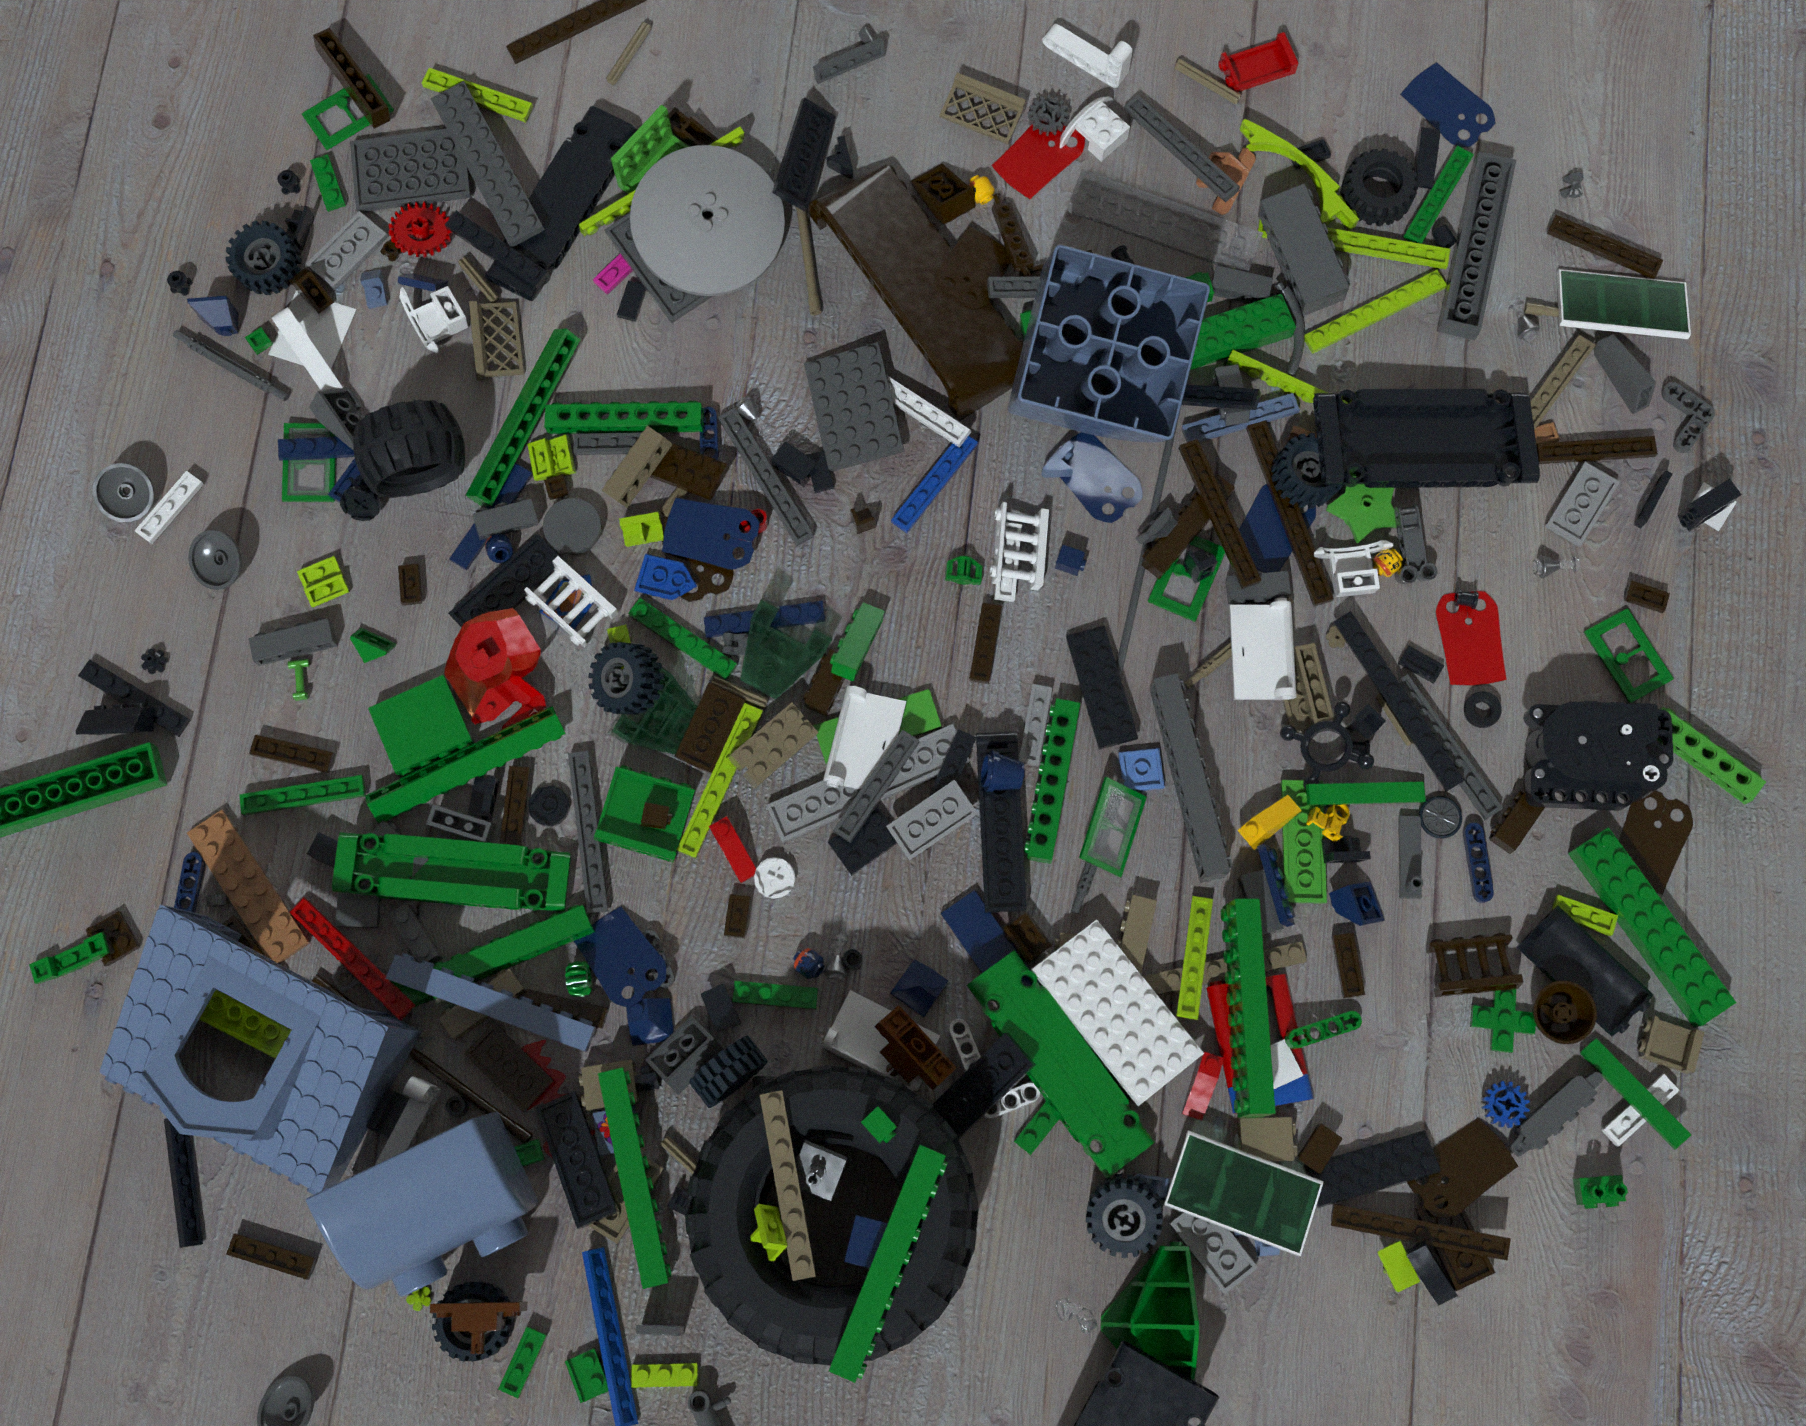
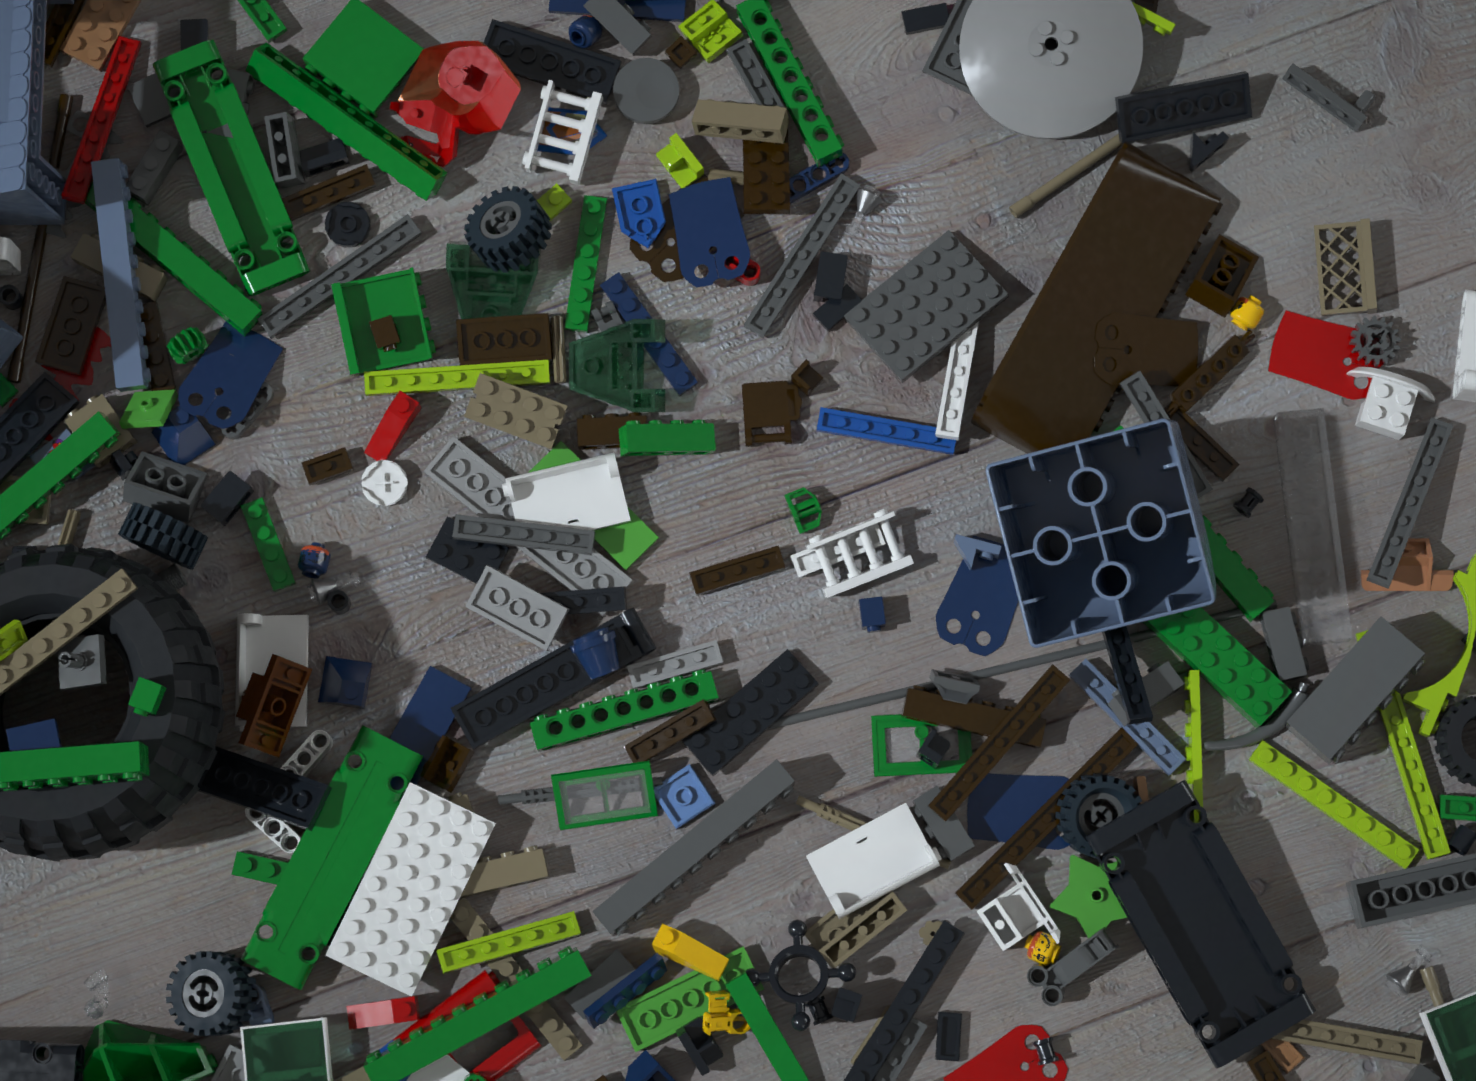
camera: 65 degrees right, 5 degrees up
(614, 1035) = (148, 409): none -> bright green plate
(869, 558) = (770, 406): none -> dark brown piece
(1089, 753) = (670, 732): none -> dark brown plate

